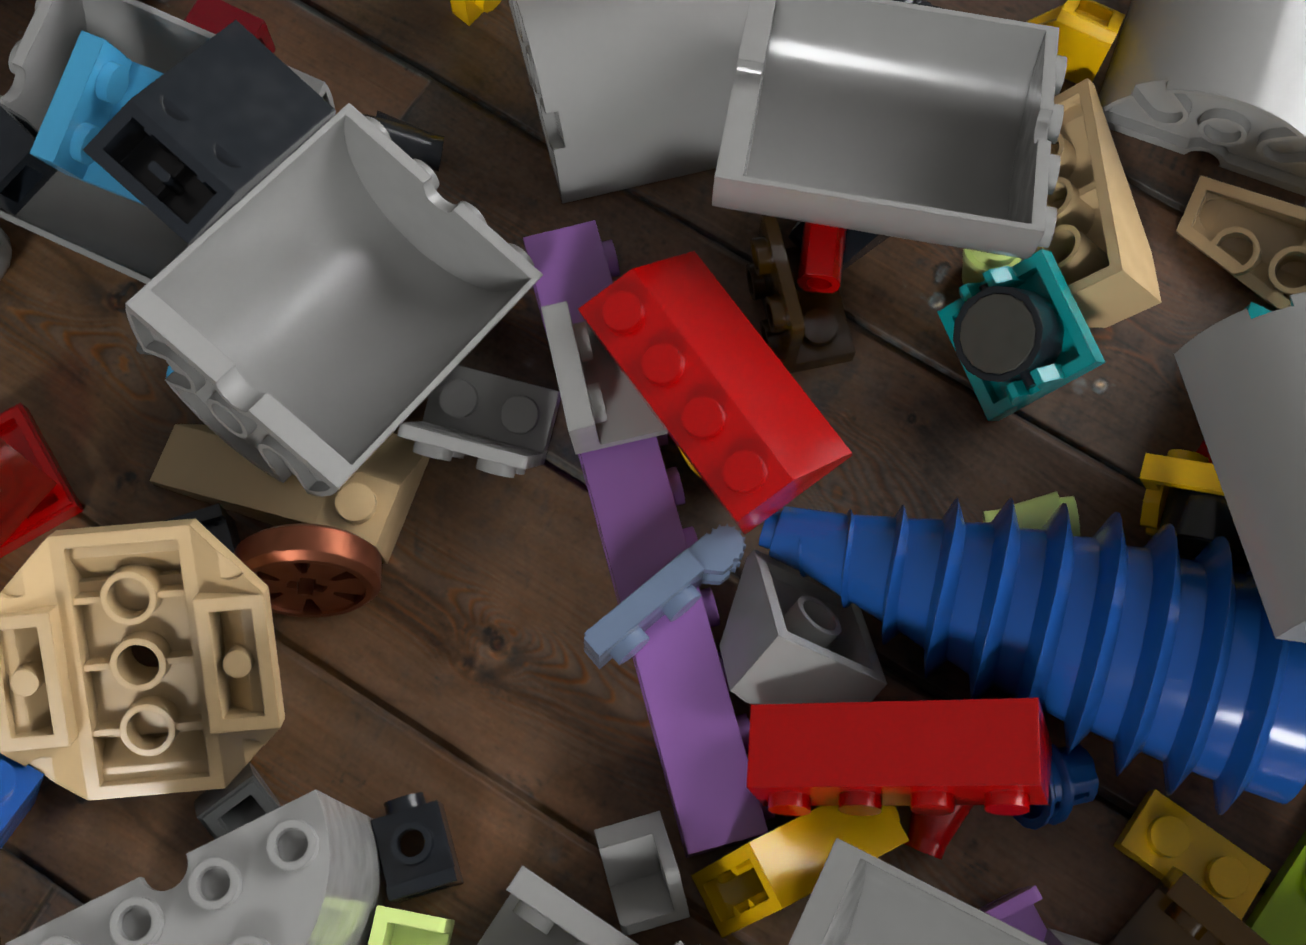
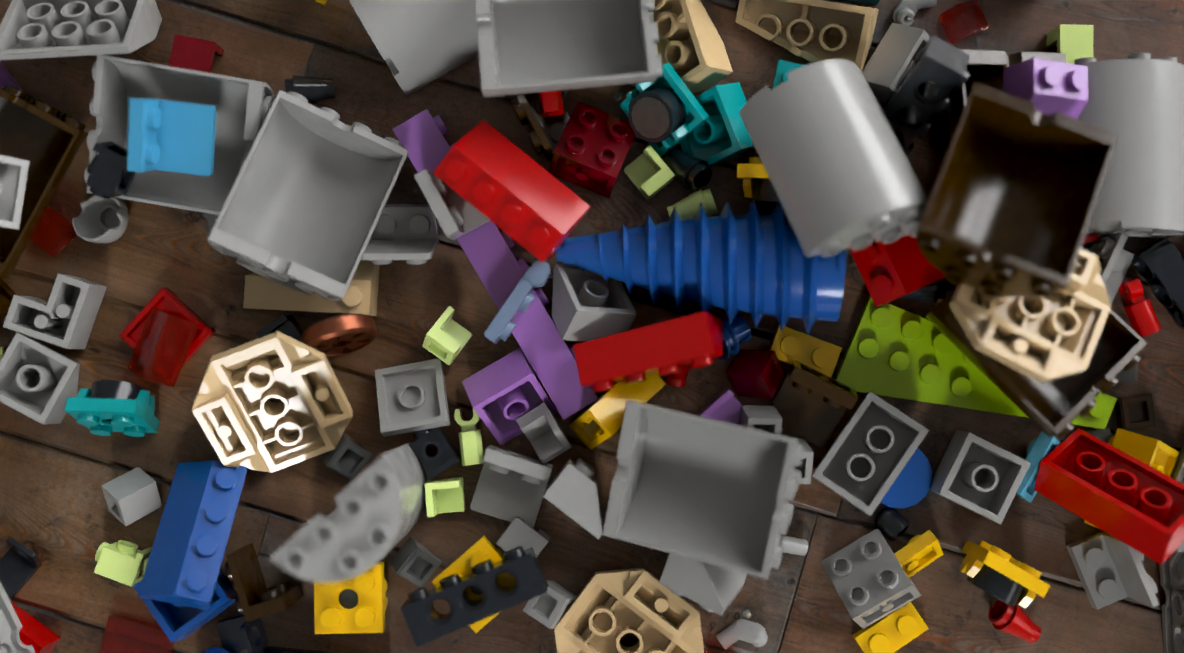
camera: 15 degrees left, 15 degrees up
(209, 130) = (215, 132): black slope -> none
(405, 731) = (412, 397): none -> light grey plate
(492, 845) = (469, 439): none -> yellowish green bar
(505, 635) = (446, 337): none -> yellowish green panel
(586, 774) = (506, 393): none -> medium lavender slope
(873, 373) = (592, 149): none -> dark red bracket
(966, 442) = (649, 173): none -> yellowish green panel
(1042, 452) = (690, 170): none -> black cone
(1089, 873) = (755, 373): none -> dark red panel
(1121, 406) = (724, 132): none -> teal slope

